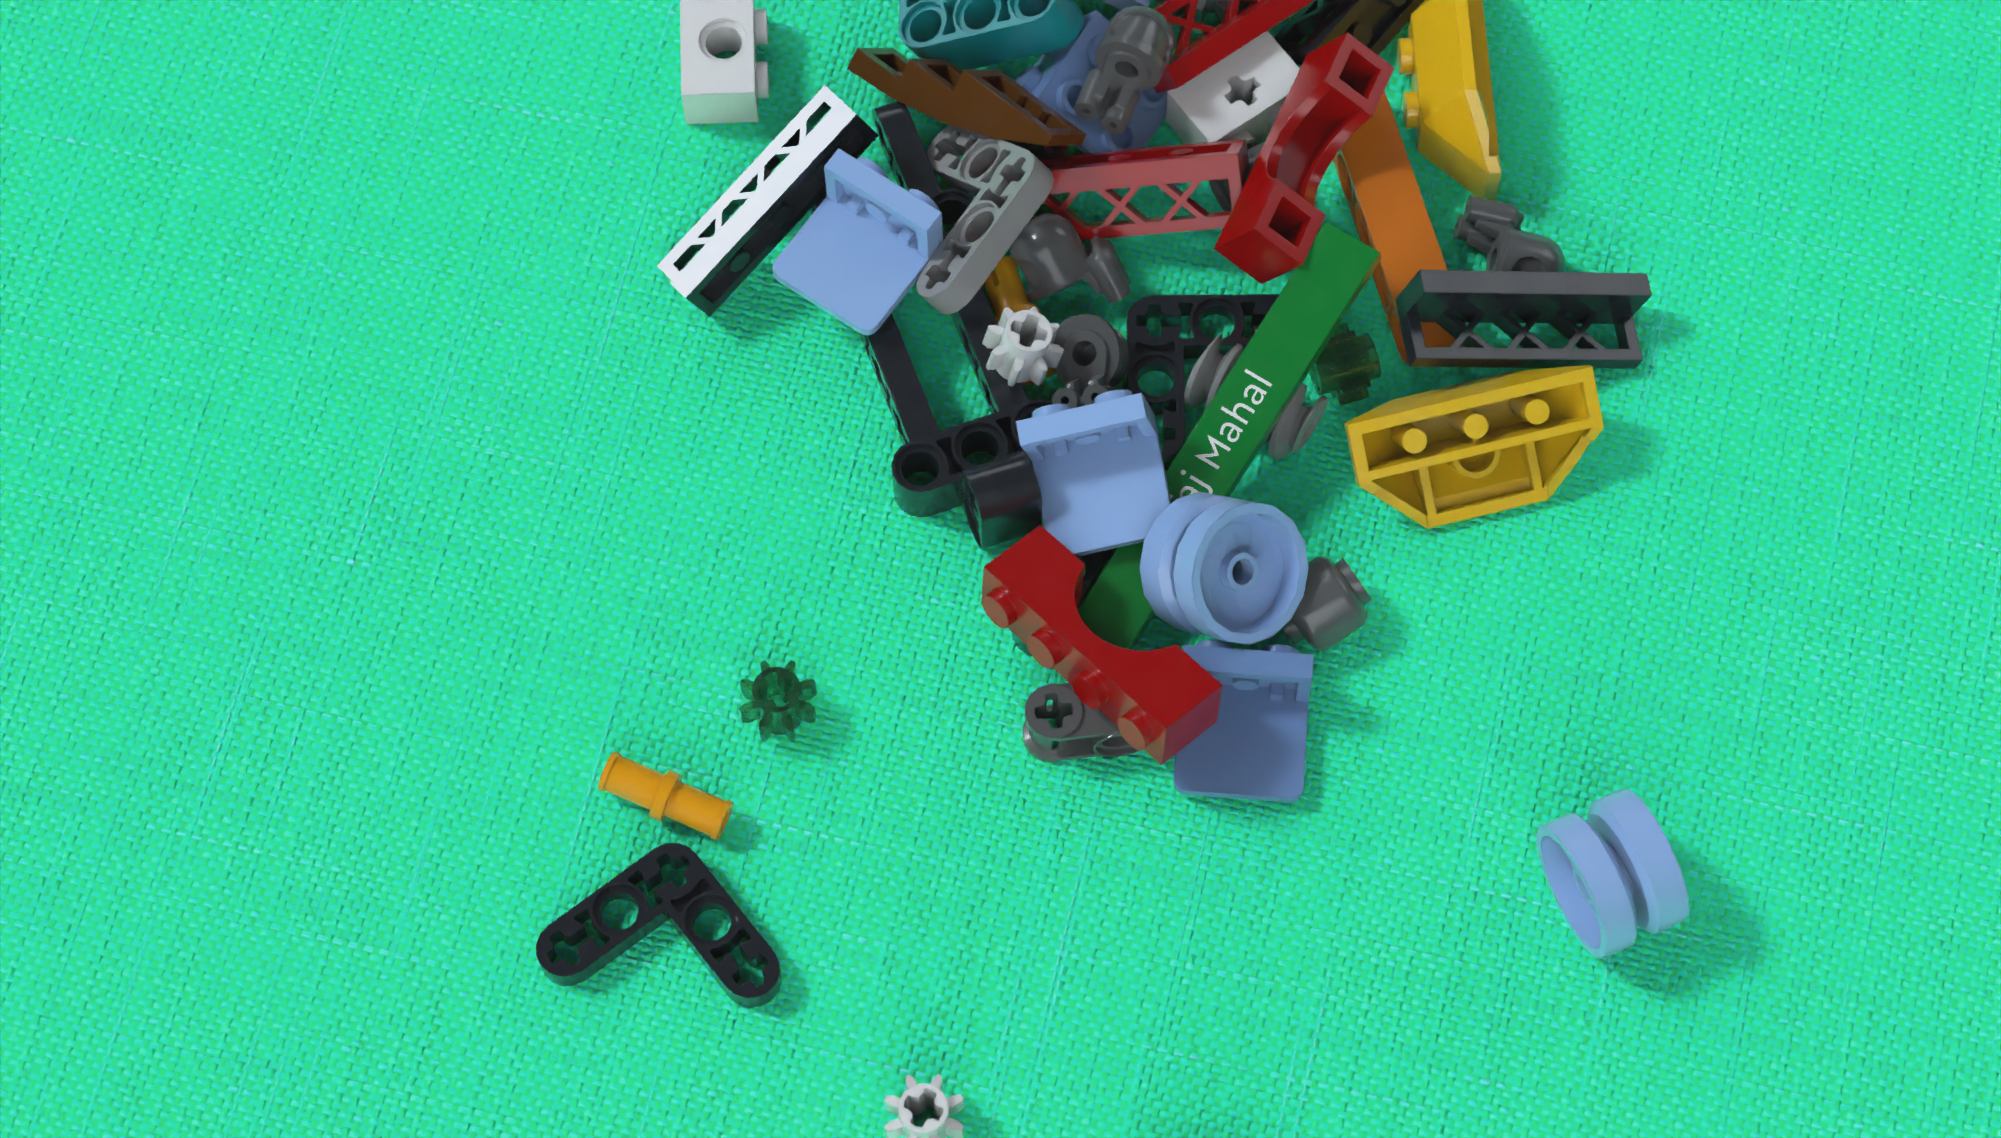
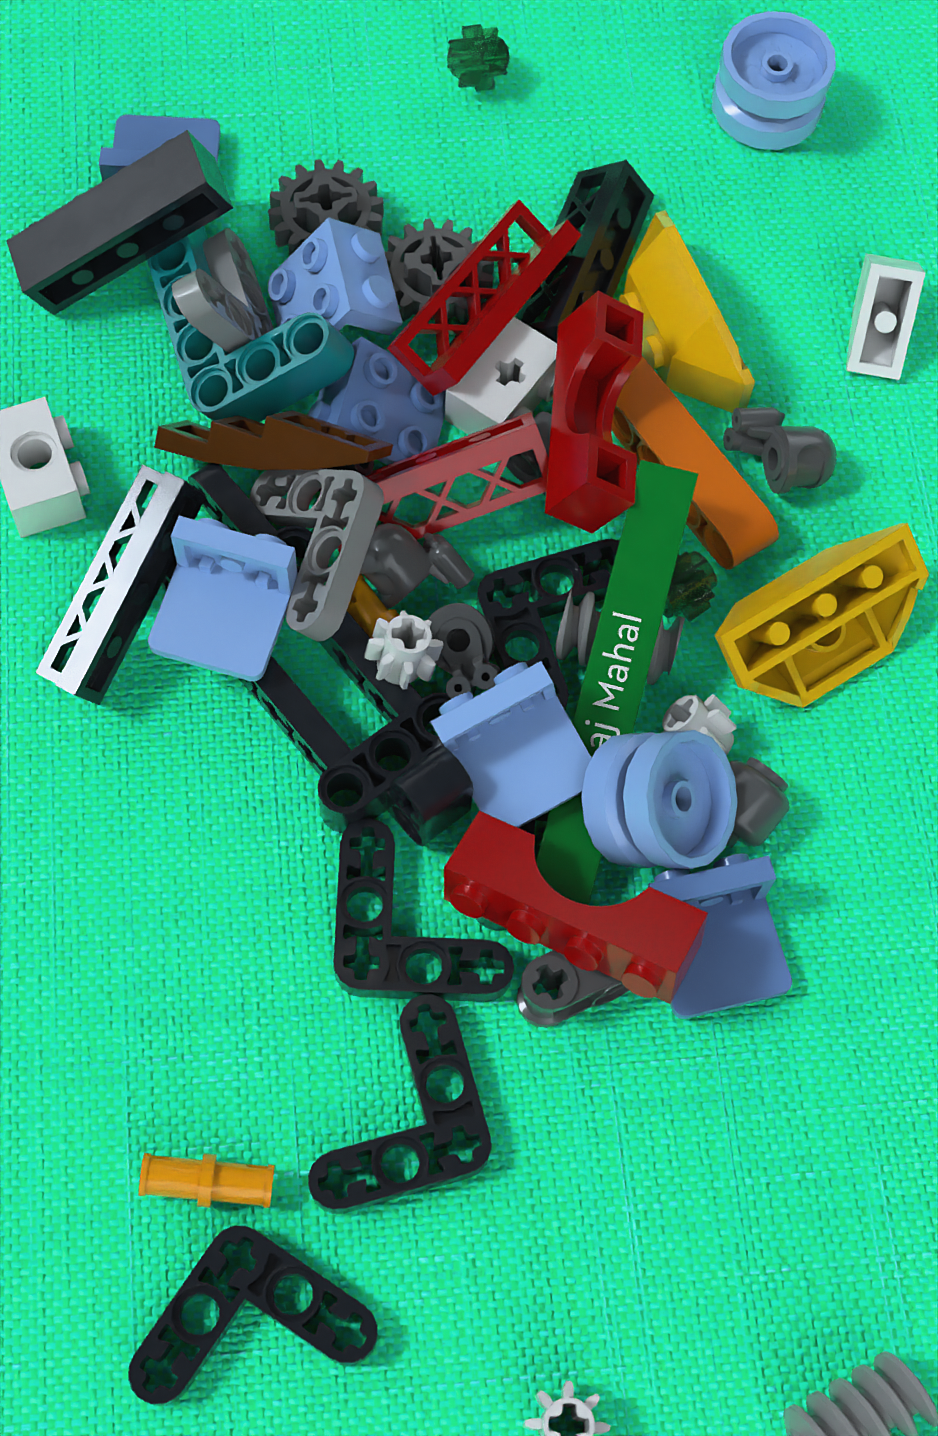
camera: 25 degrees left, 0 degrees up
(776, 719) = (280, 1068): clear green gear -> none
(905, 817) = (439, 1119): none -> black beam
(918, 643) = (395, 951): none -> black beam
(1128, 60) = (409, 367): dark grey piece -> none
(1311, 510) = (705, 717): none -> white gear
(1518, 298) = (809, 490): black fence -> none
(1682, 138) = (883, 315): none -> slope

